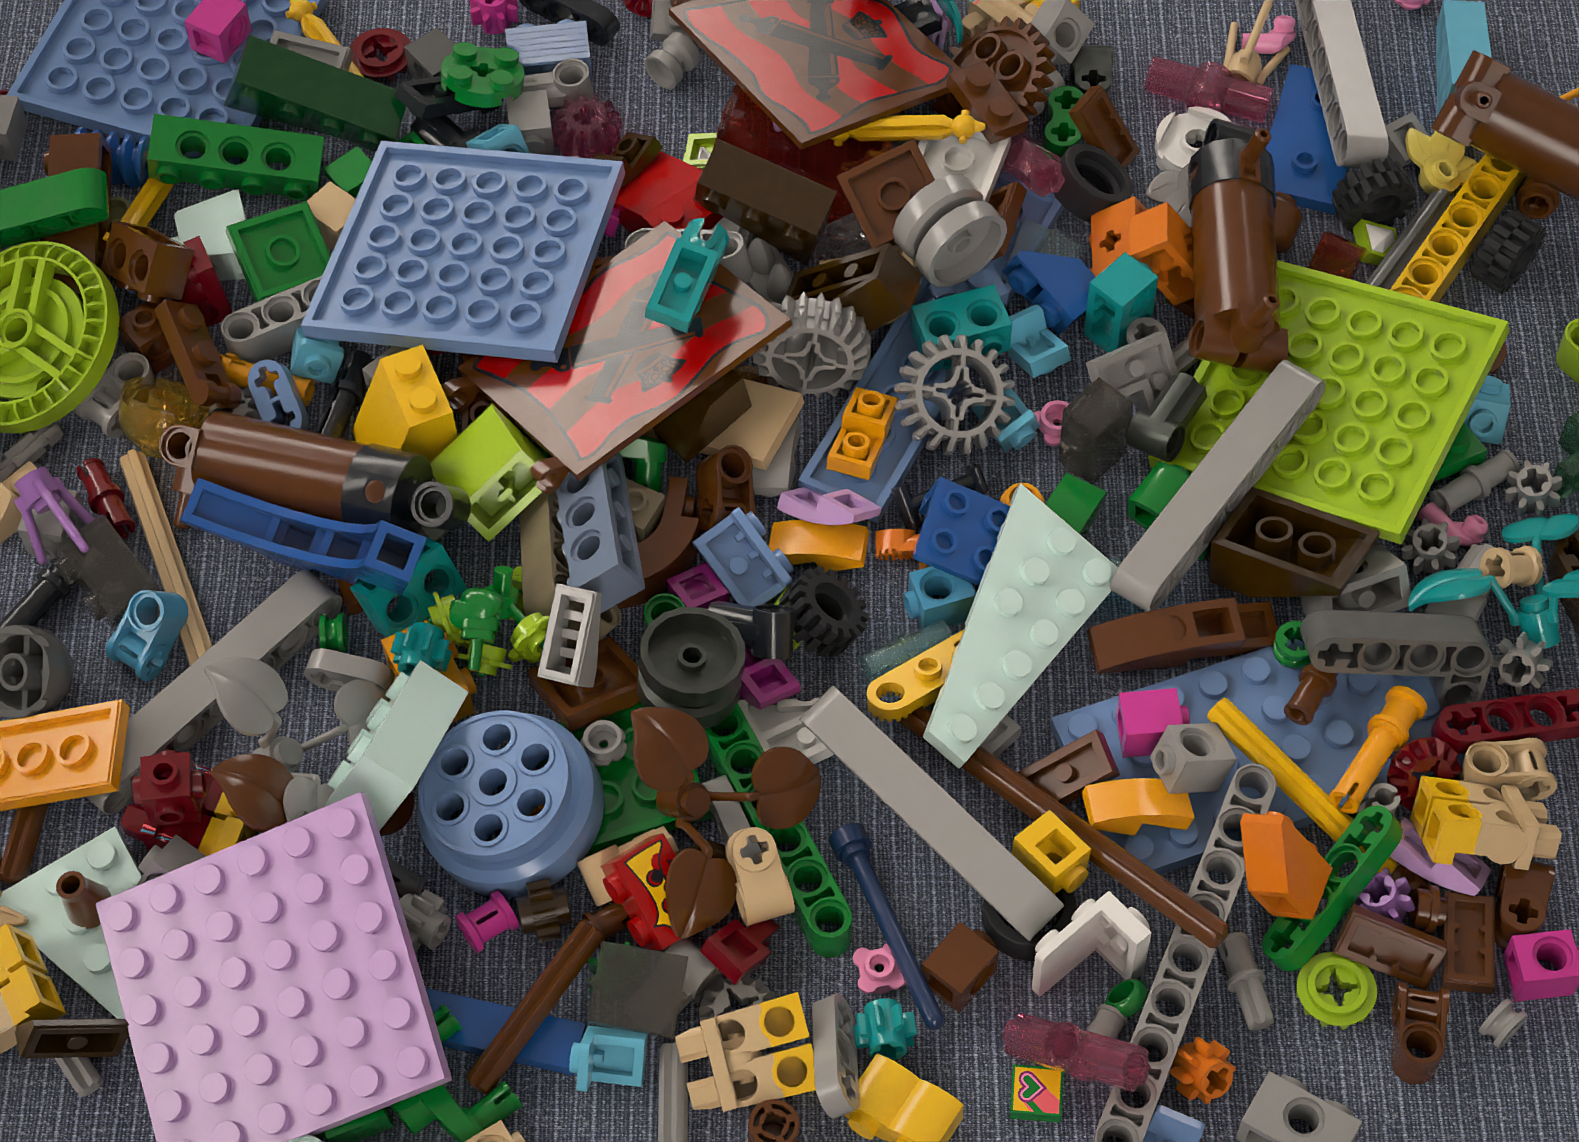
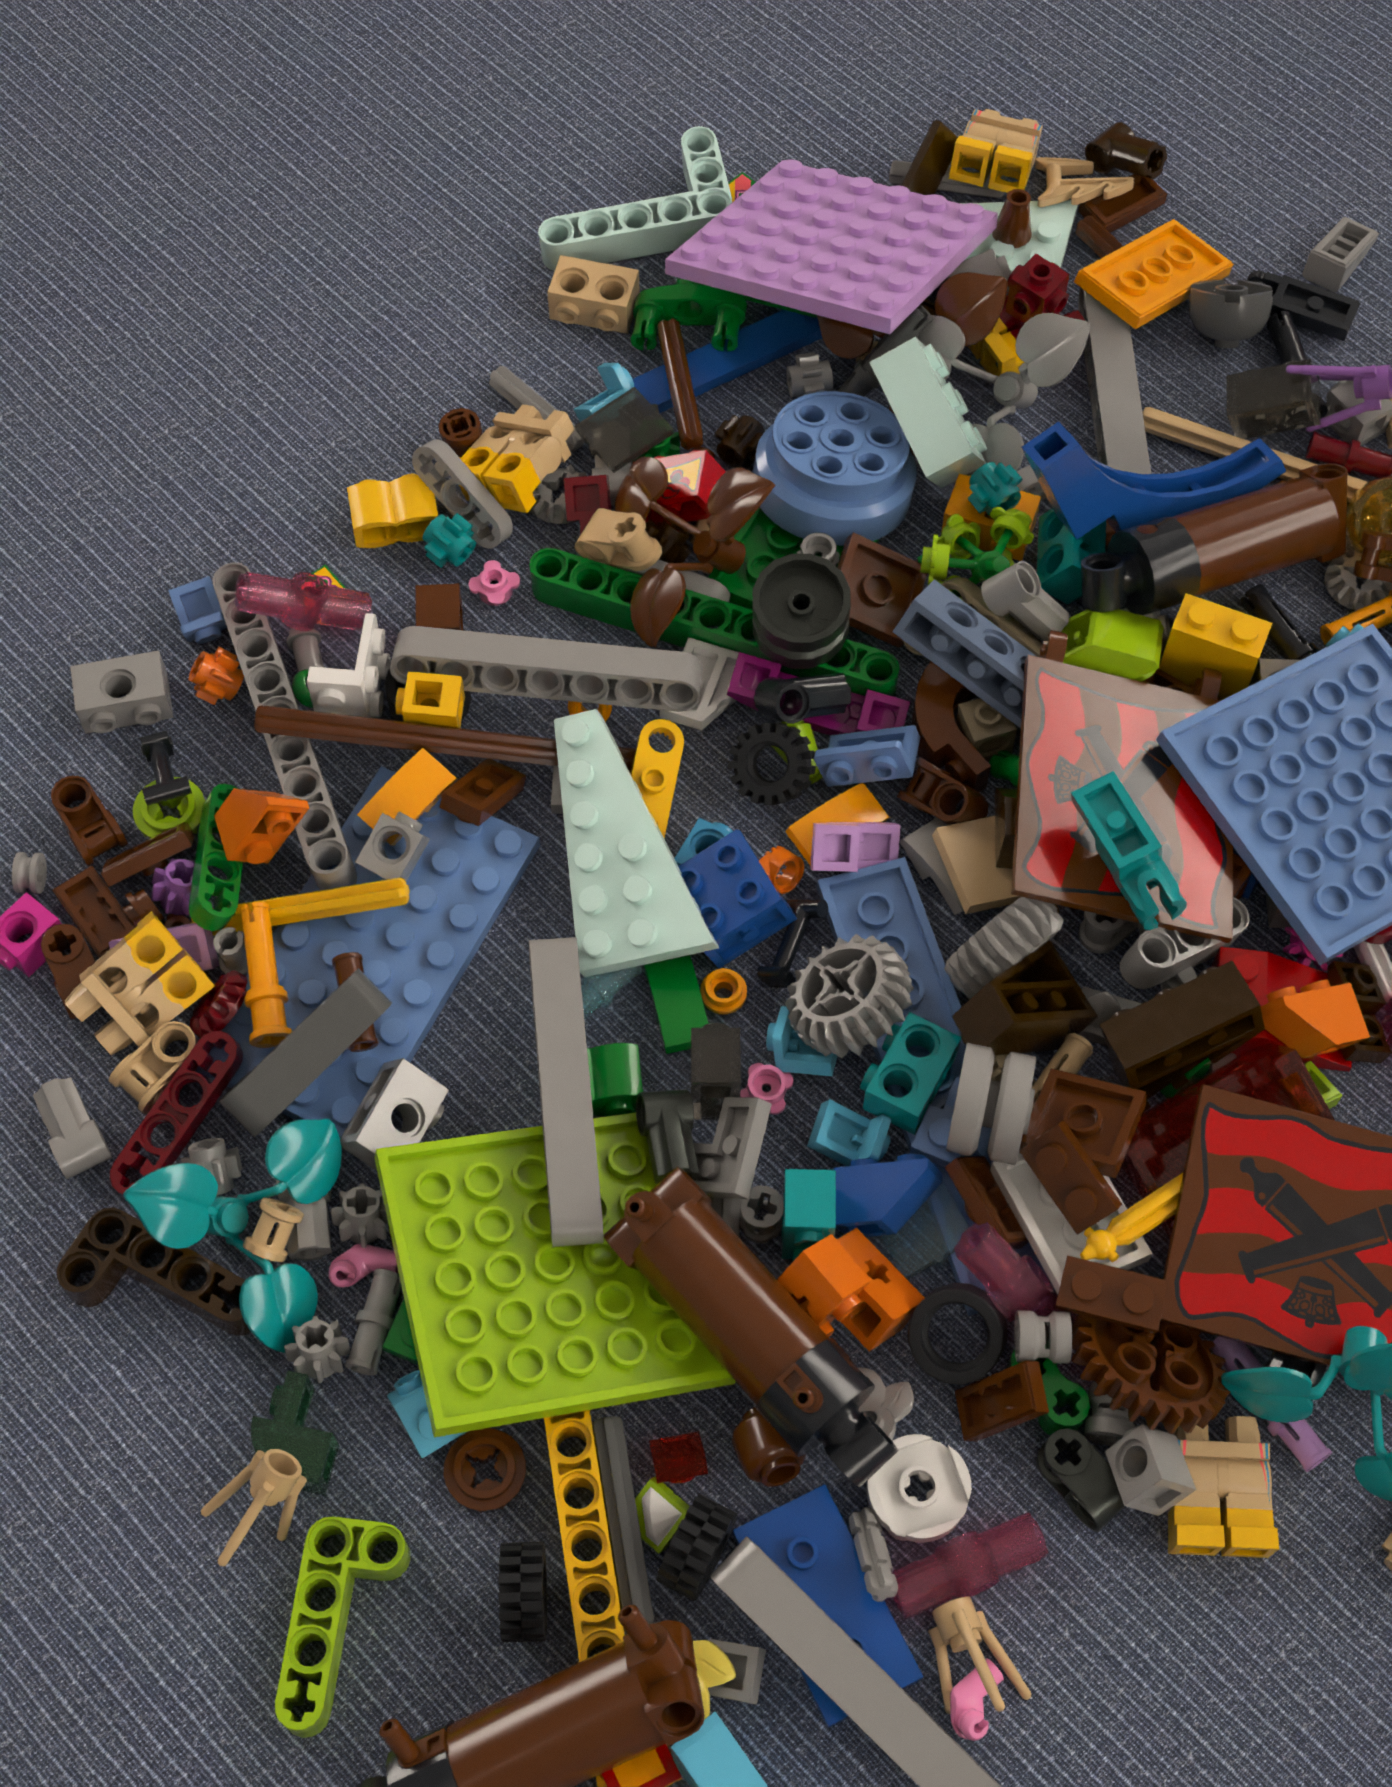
camera: 135 degrees right, 5 degrees up
(142, 638) = (1196, 395): dark azure piece -> none
(286, 390) = (1334, 603): medium blue beam -> none
(478, 617) = (978, 526): green piece -> none
(487, 921) = (769, 410): dark pink bush -> none
(514, 545) = (1020, 594): none -> light grey piece
(555, 645) = (900, 562): light grey slope -> none
(662, 155) = (1316, 1019): none -> orange slope
(852, 848) = (581, 633): dark blue piece -> none
(862, 433) = (893, 920): light orange slope -> none
(902, 649) = (691, 798): clear light blue pin -> none
(944, 154) = (1070, 1177): none -> reddish brown plate
(1050, 123) = (1031, 1336): none -> light grey wheel
(1144, 717) = (451, 862): dark pink brick -> none
(1181, 633) = (487, 971): reddish brown slope -> none
(1246, 981) = (236, 762): light grey axle -> none
(1269, 114) = (873, 1555): none -> light grey axle
(1286, 656) = (409, 1035): green bush -> none
(1287, 549) = (460, 1085): dark brown slope -> none
(1333, 983) = (157, 750): none -> black piece

